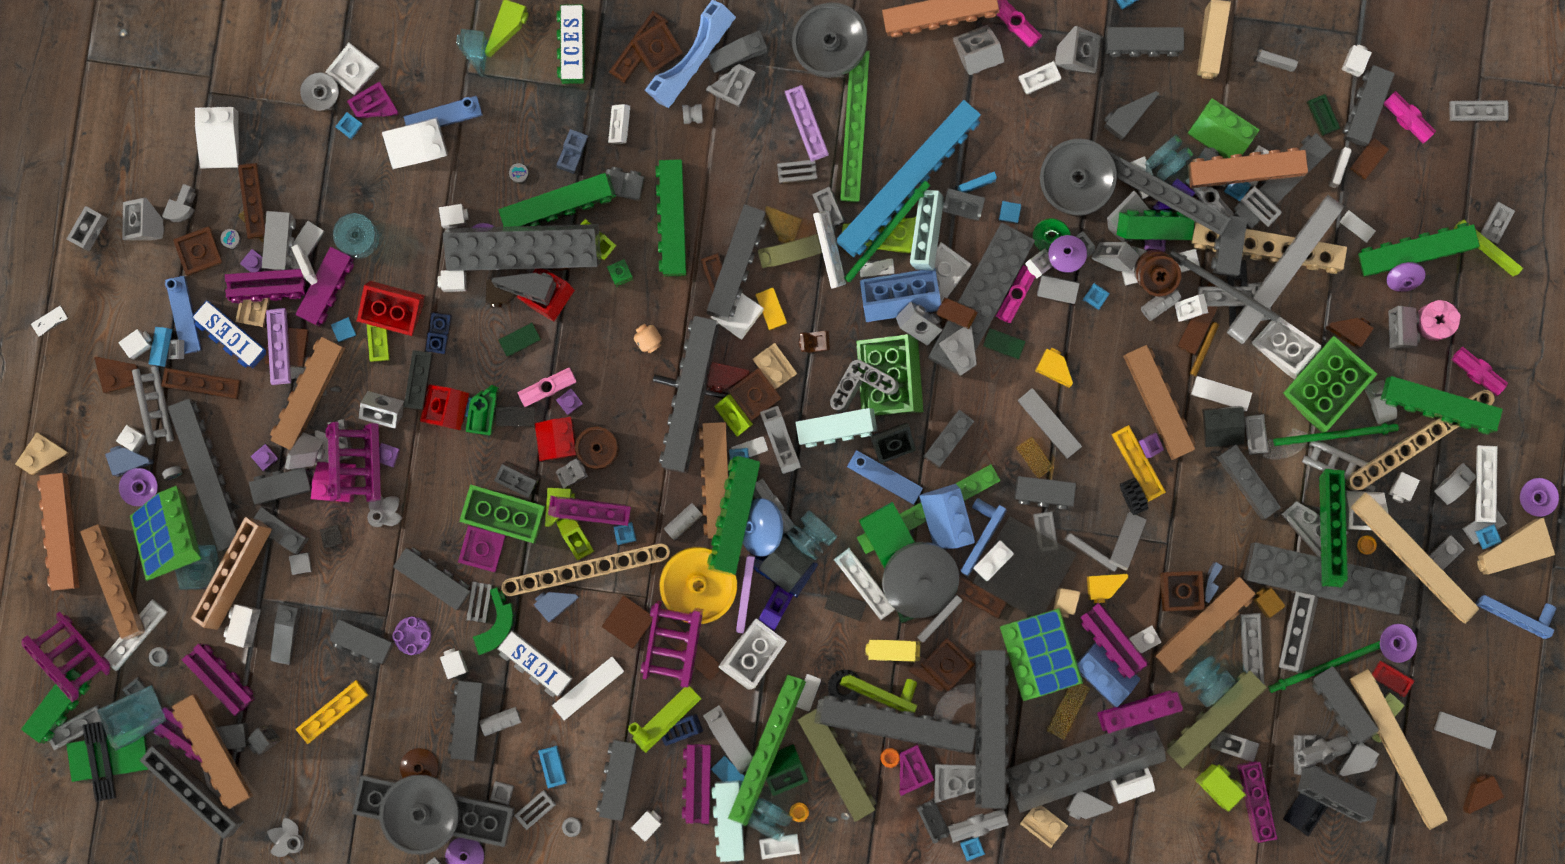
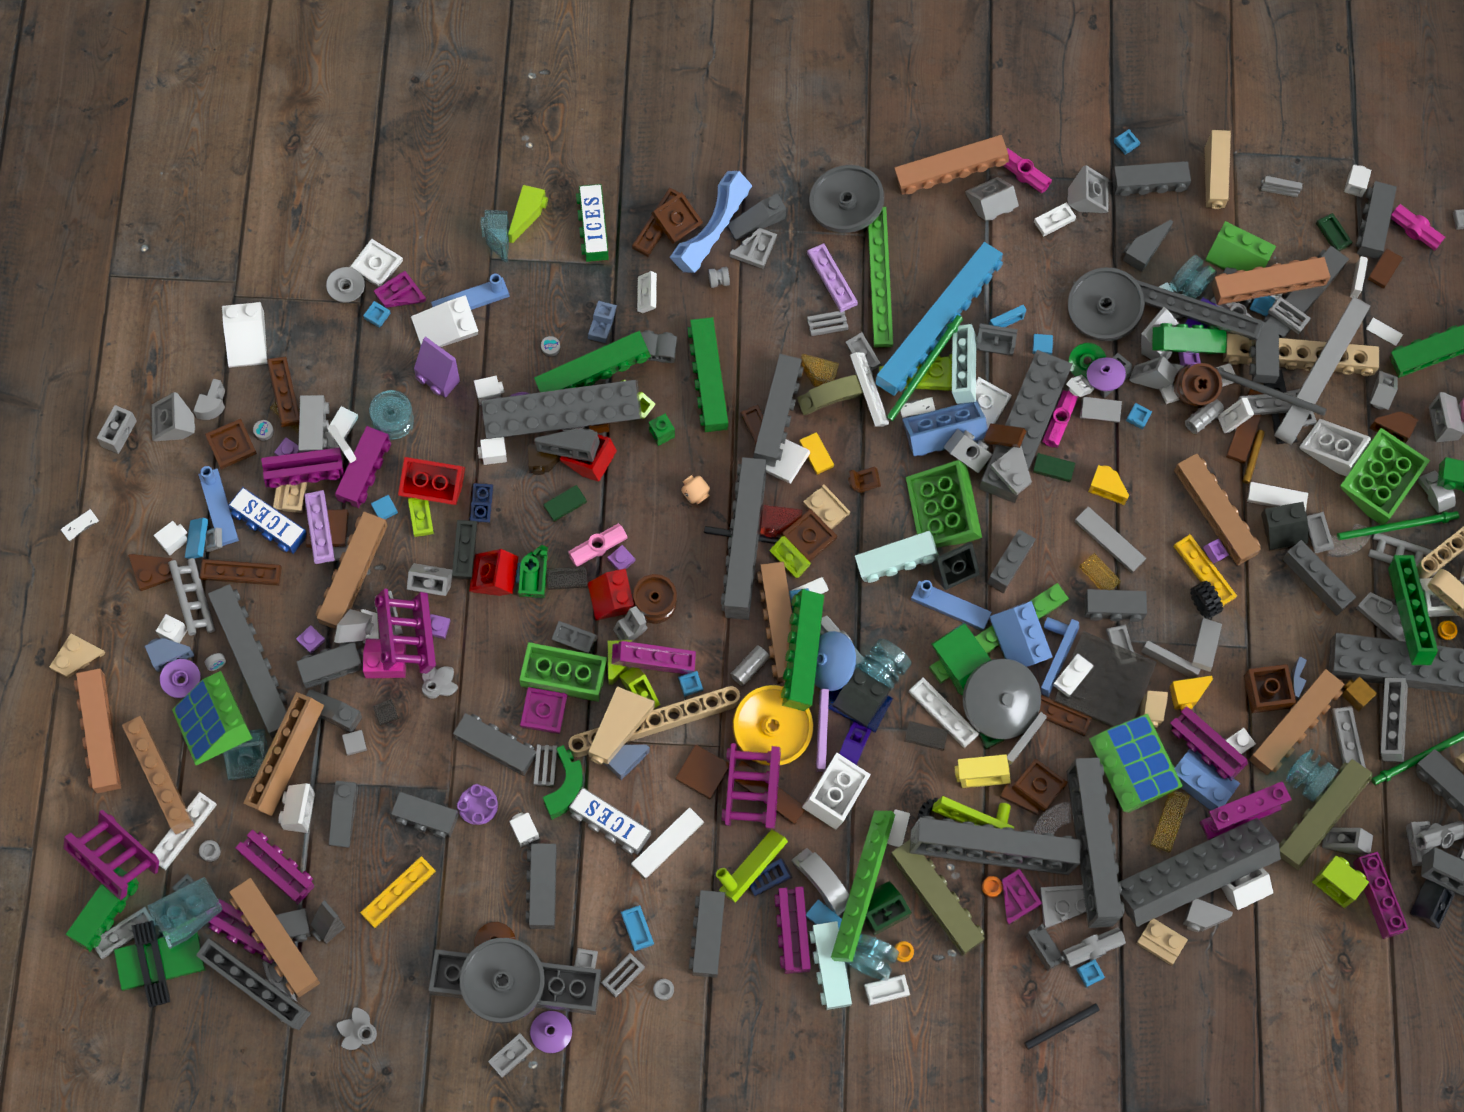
camera: 10 degrees left, 15 degrees down
(402, 194) = (436, 368): none -> medium lavender slope
(500, 721) = (578, 884): light grey axle -> none
(550, 573) = (619, 723): none -> tan slope
(647, 824) = (744, 978): white brick -> none
(780, 439) = (839, 574): light grey arch -> none
(857, 379) = (912, 511): light grey beam -> none
(1345, 291) = (1384, 390): none -> light grey slope
(1405, 276) = (1437, 366): medium lavender dish -> none

